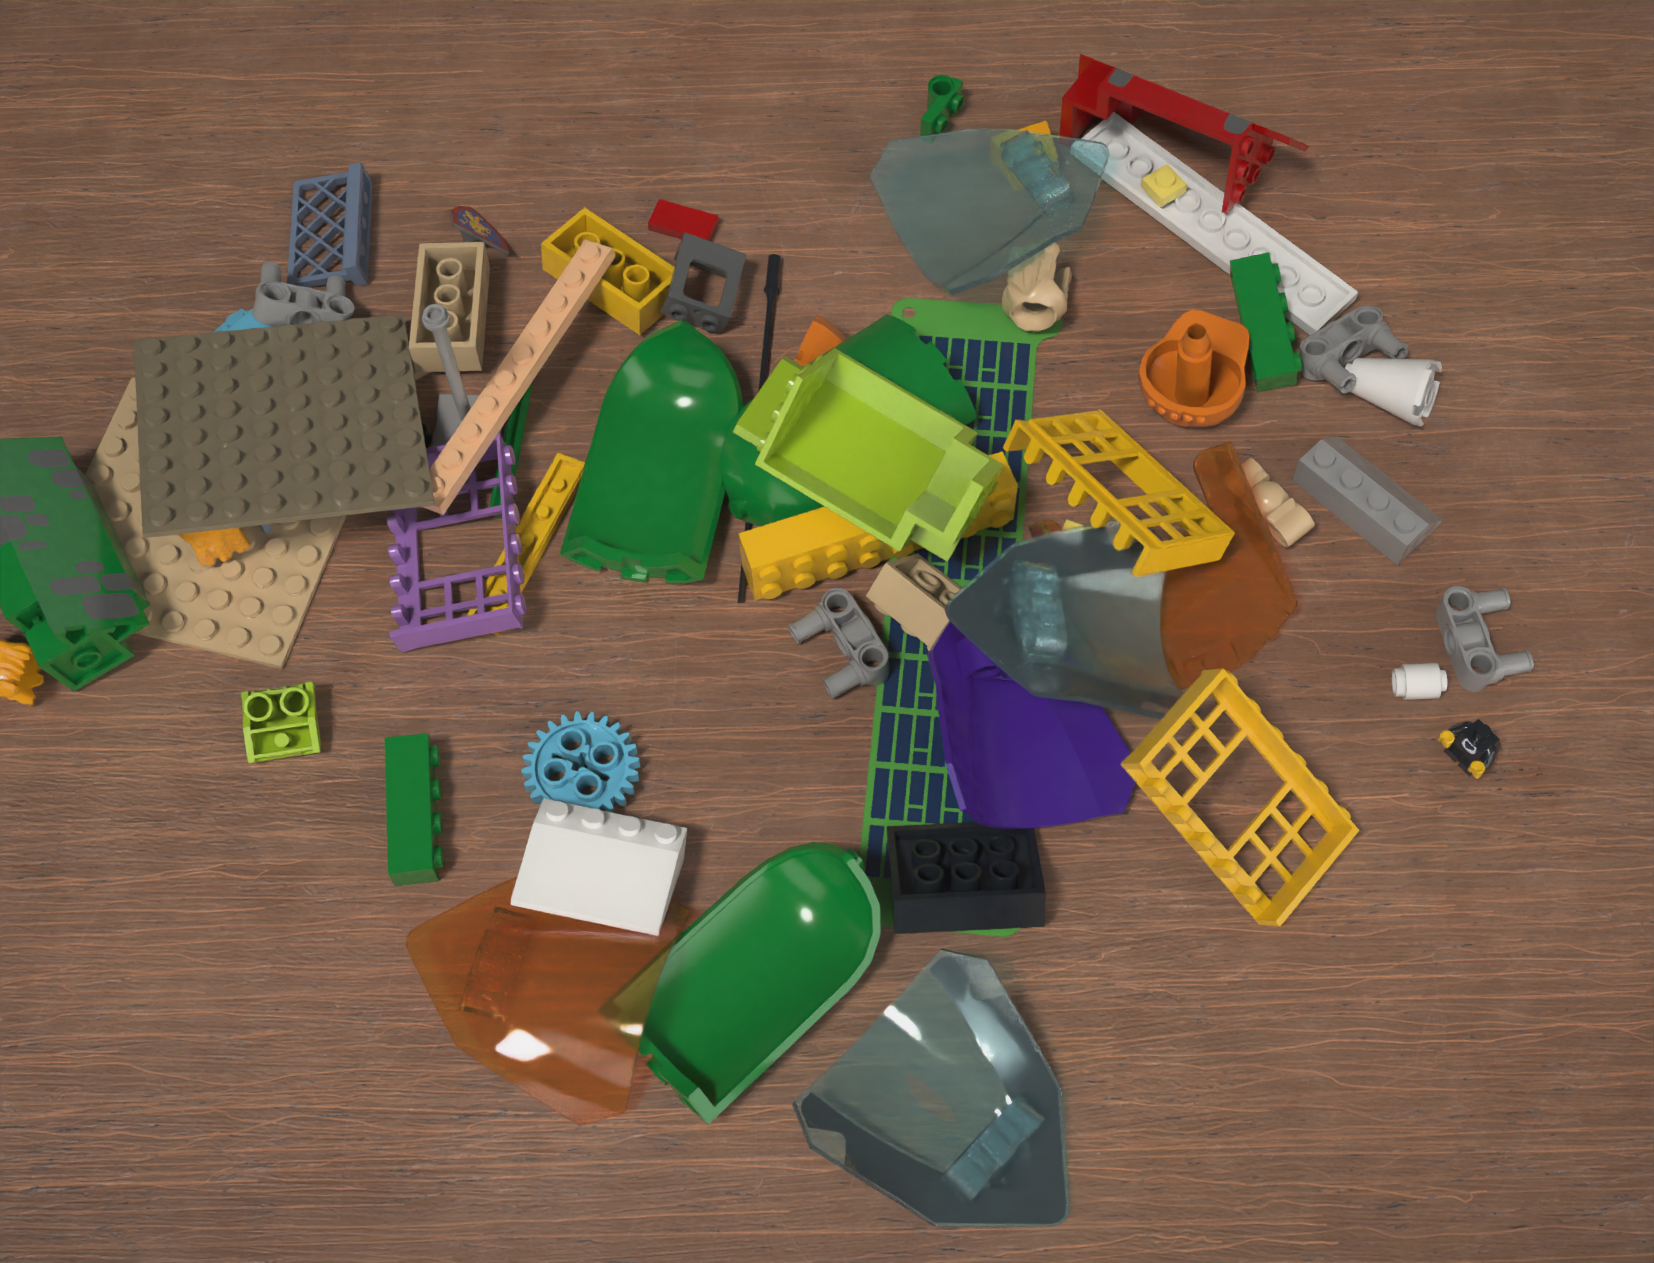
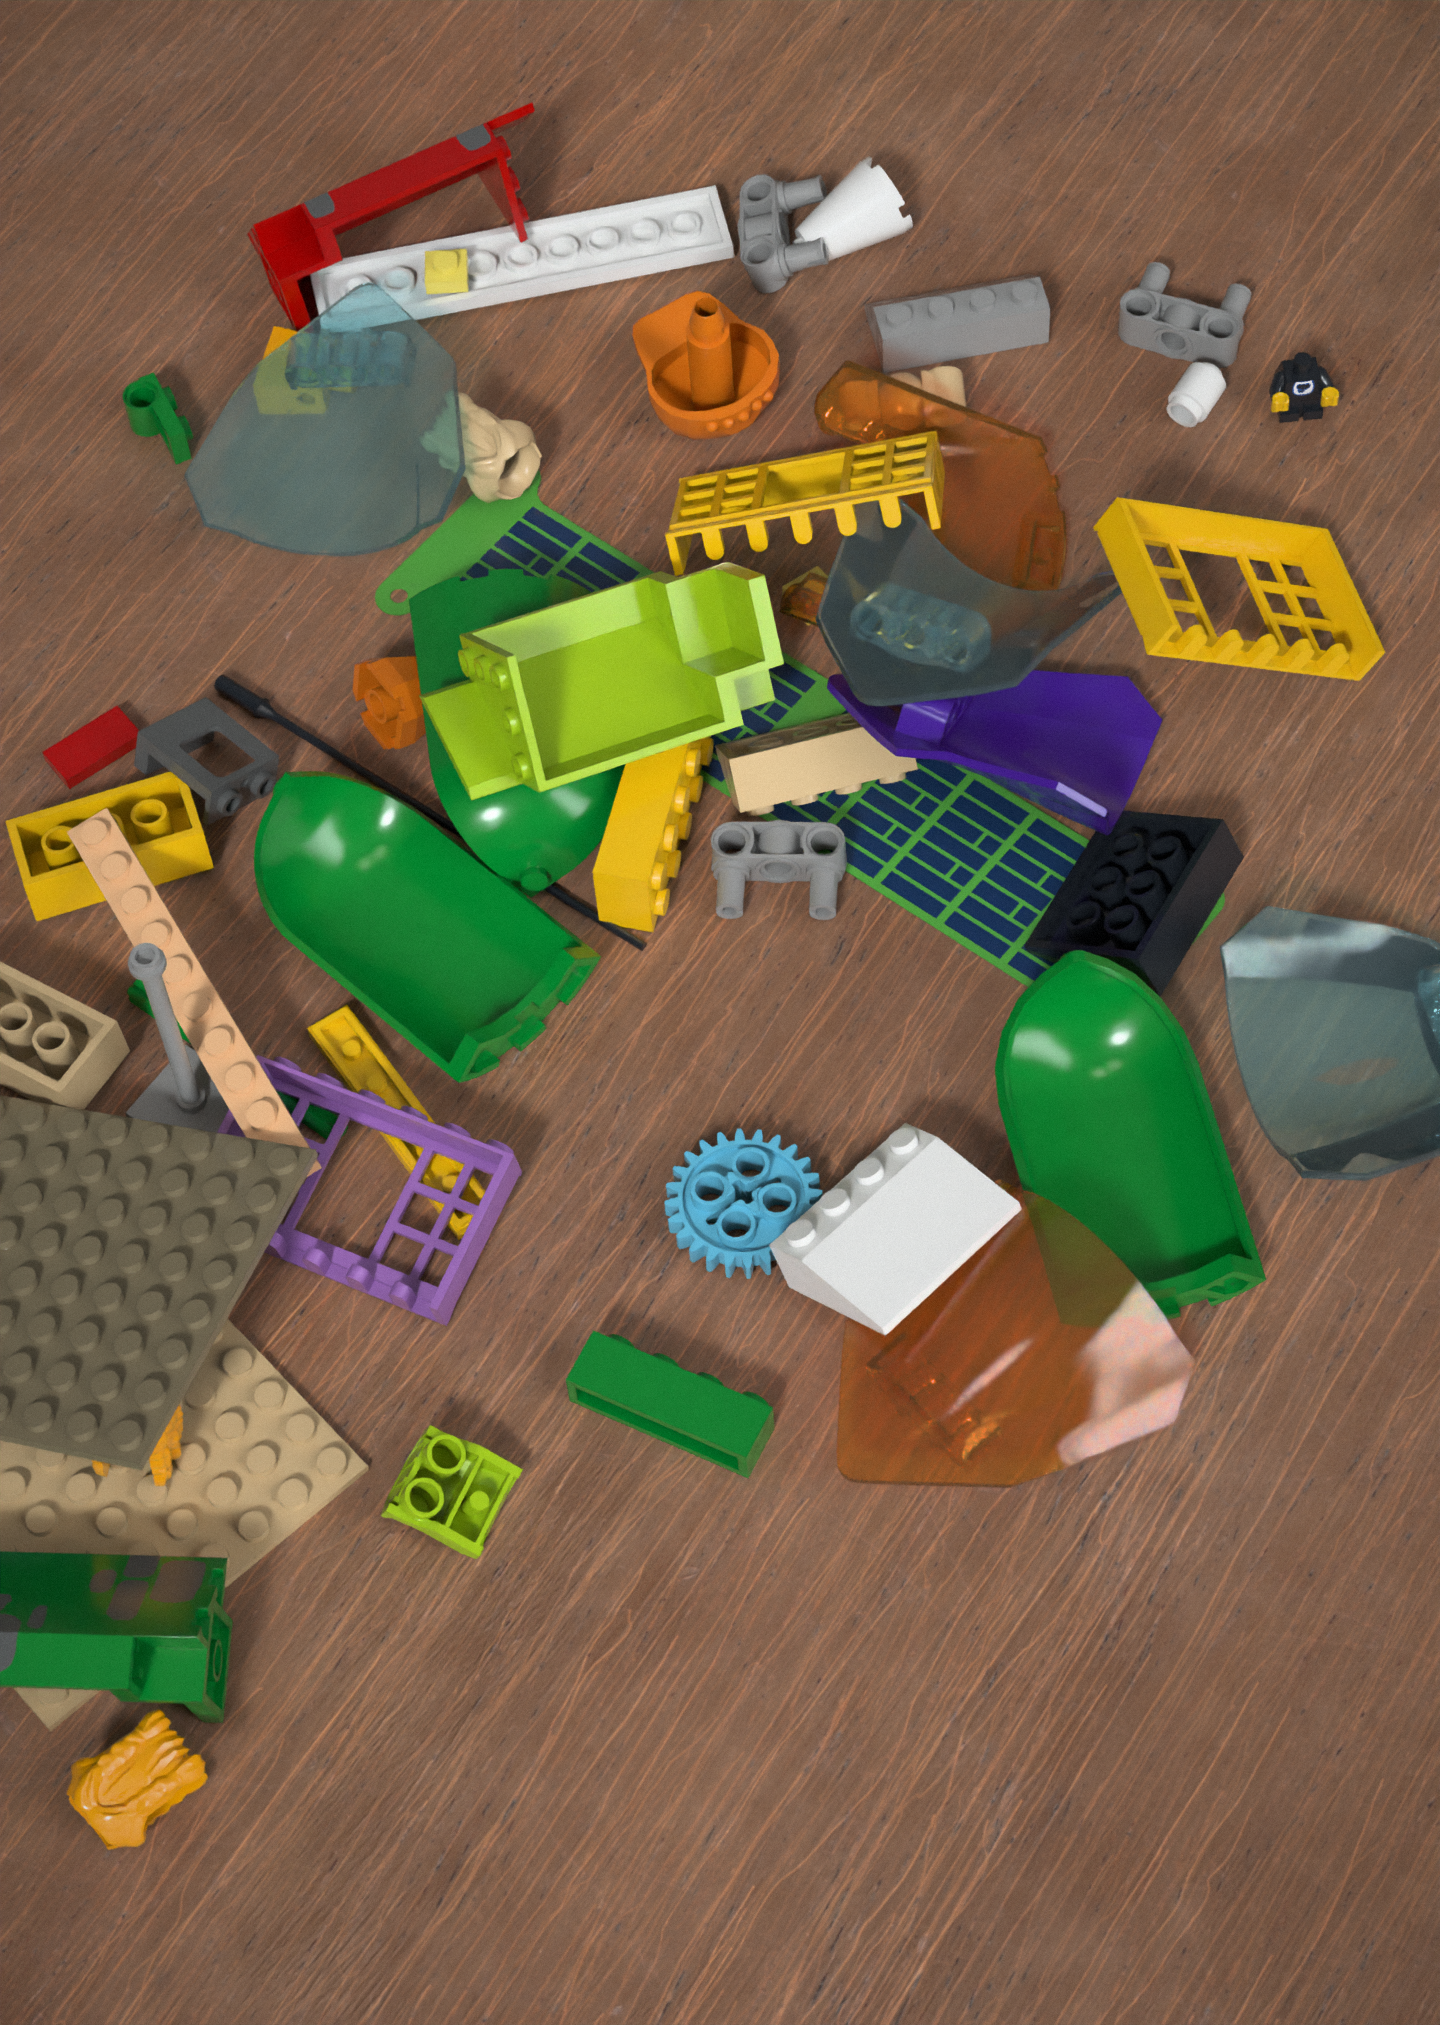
camera: 55 degrees left, 5 degrees down
(1262, 313) = (670, 268): green brick -> none

